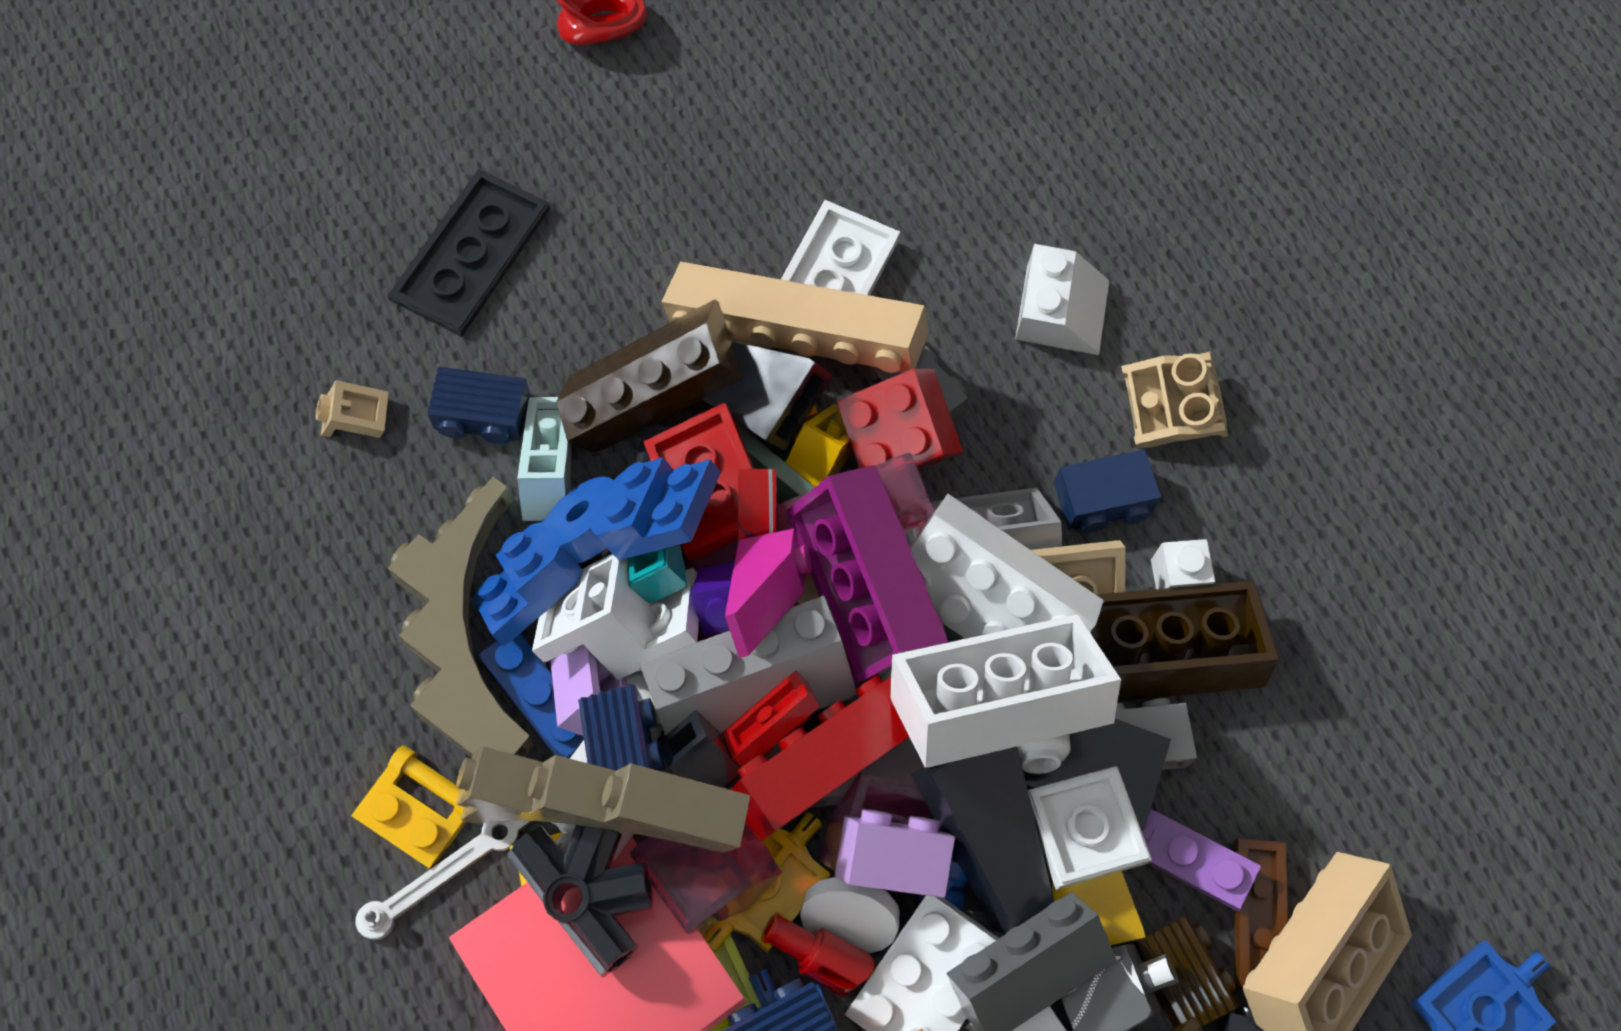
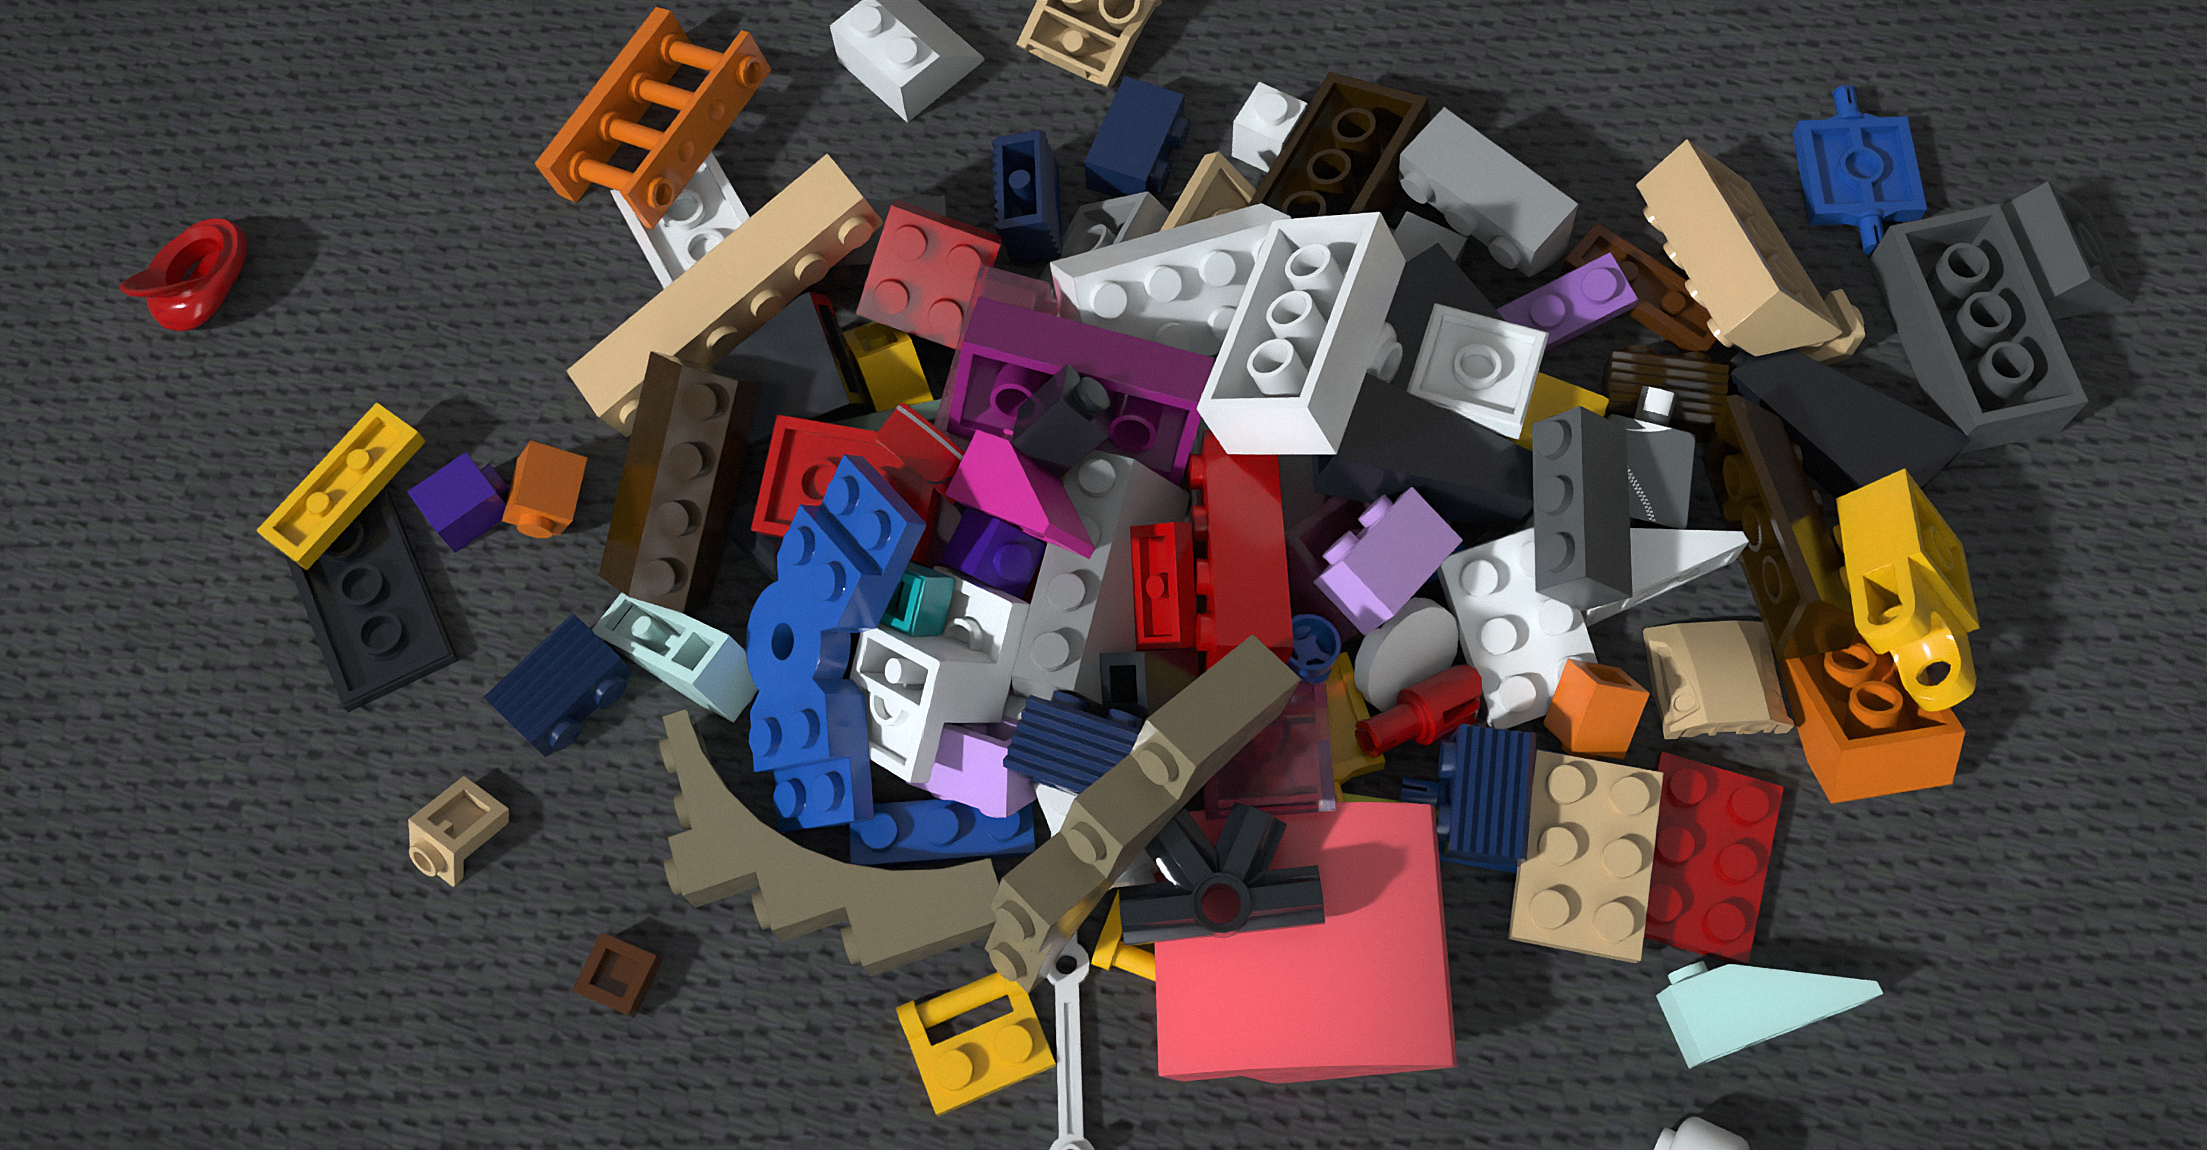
camera: 45 degrees left, 0 degrees up
(321, 566) = (617, 975): none -> reddish brown plate
(519, 193) = (341, 486): none -> yellow plate
(558, 265) = (461, 500): none -> dark purple brick
(595, 306) = (544, 490): none -> orange brick
(809, 842) = (1314, 643): none -> blue wheel
(825, 576) = (1063, 421): none -> black brick
(888, 161) = (623, 96): none -> orange fence
(1008, 449) = (1027, 197): none -> dark blue brick
(1234, 750) = (1488, 194): none -> light grey slope

